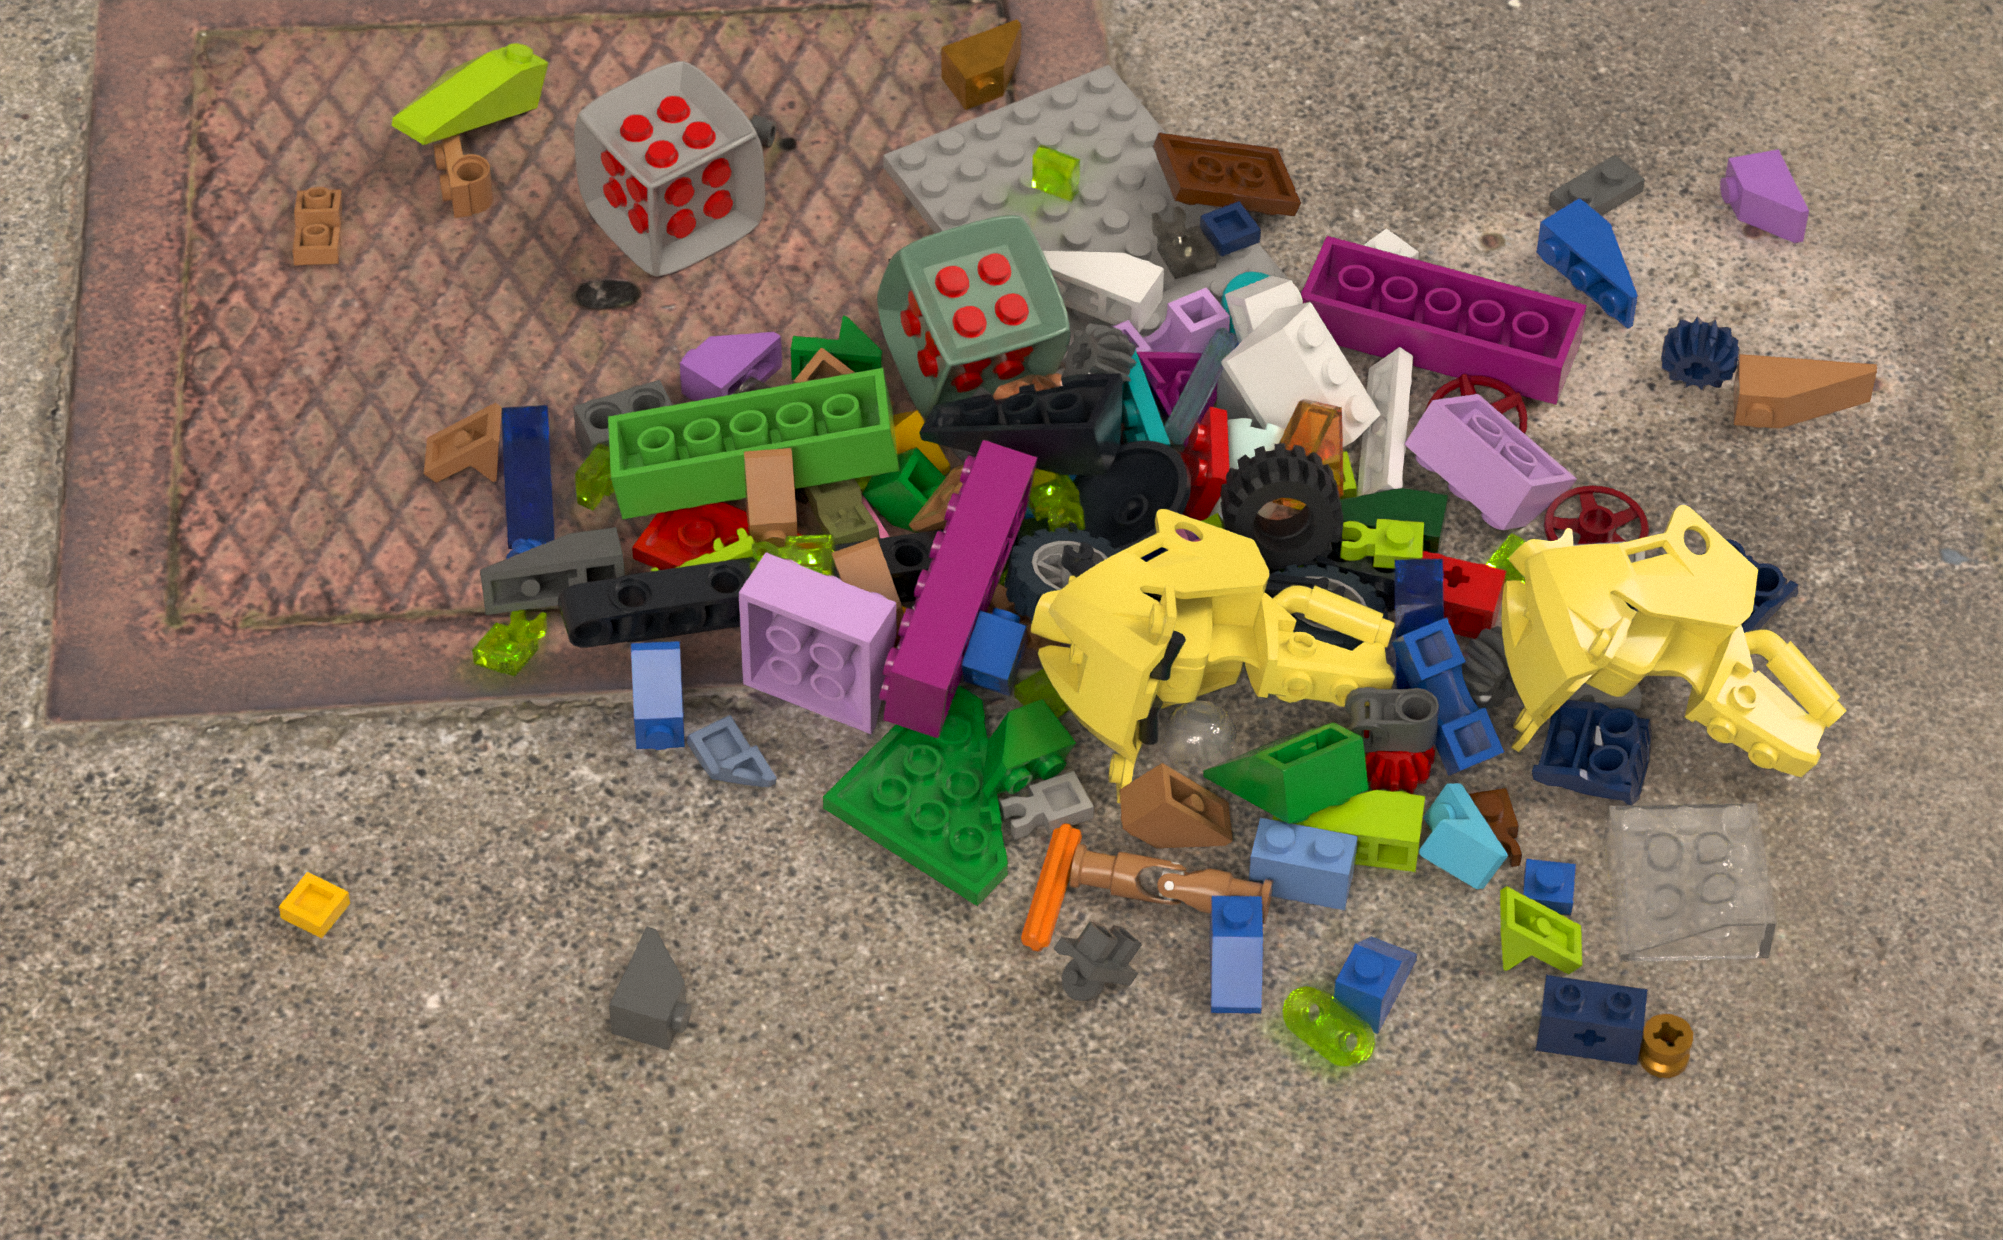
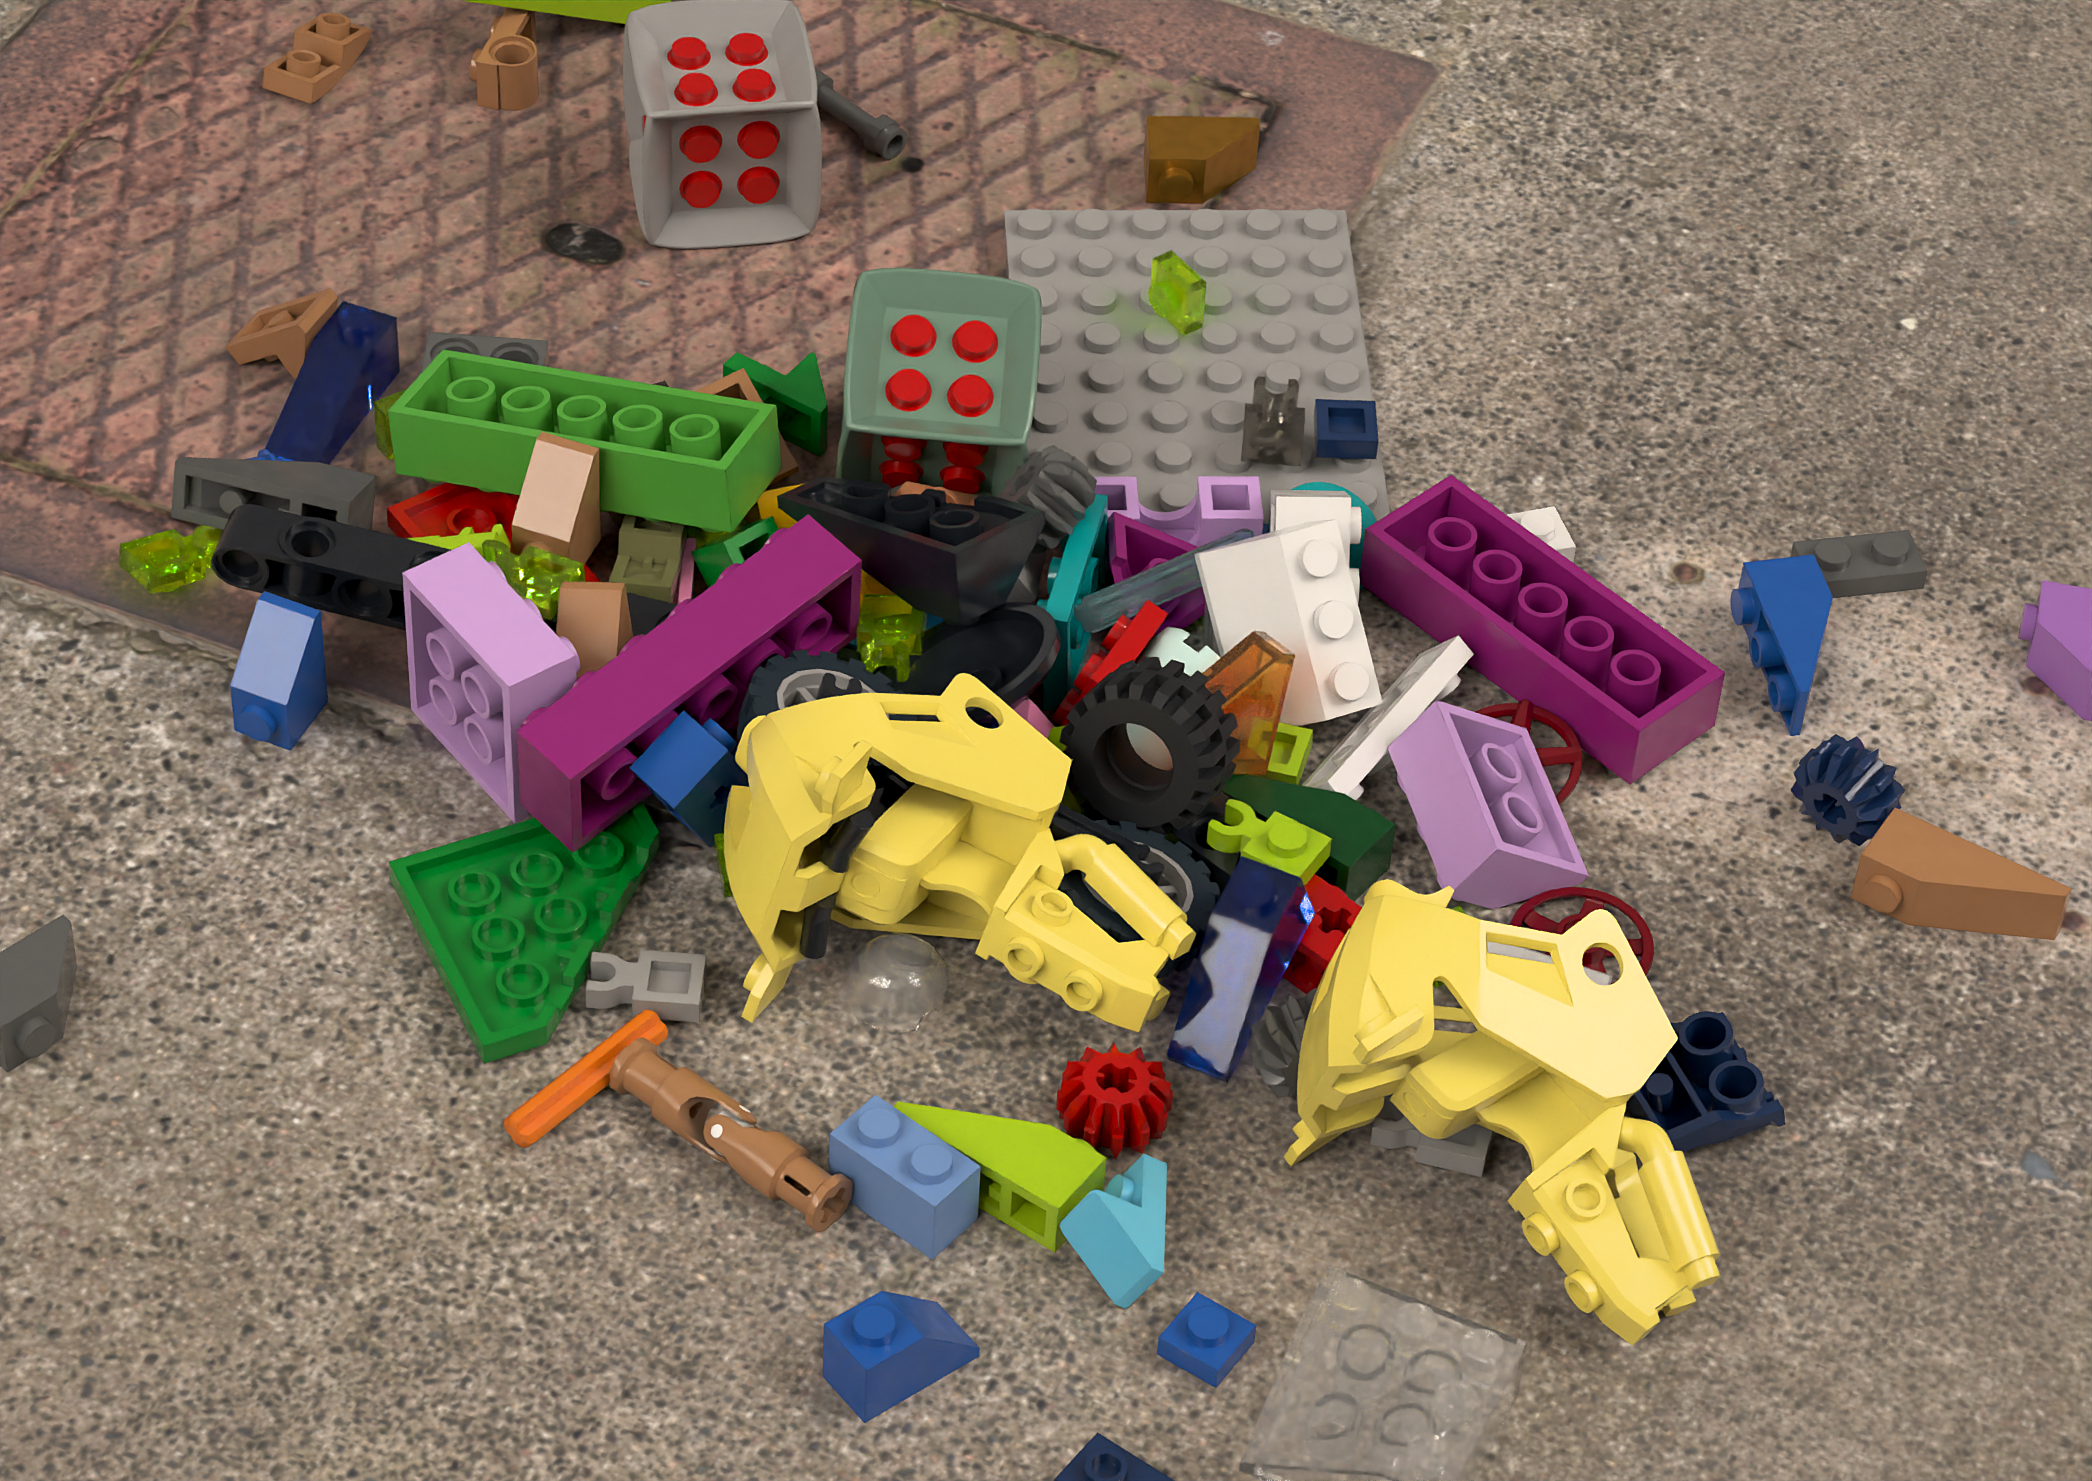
camera: 25 degrees right, 5 degrees down
(727, 362) = (653, 353): medium lavender slope -> none
(728, 755) = (327, 775): sand blue slope -> none
(1025, 748) = (660, 903): green slope -> none
(1098, 959) = (559, 1181): dark grey hips -> none
(1108, 285) = (1135, 427): white slope -> none
(1174, 811) = (795, 1052): medium nougat slope -> none
(1226, 173) = (1382, 363): reddish brown plate -> none
(1236, 954) = (744, 1246): slope -> none
(1297, 772) = (957, 1062): green slope -> none
(1331, 1028) = (796, 1396): clear neon green plate -> none
(1395, 719) = (1120, 1048): dark grey piece -> none
(1435, 664) = (1213, 1050): blue arch -> none
(1500, 817) = (1193, 1233): reddish brown plate -> none
(1537, 931) = (1128, 1371): lime slope -> none
(1596, 751) = (1379, 1203): dark blue slope -> none

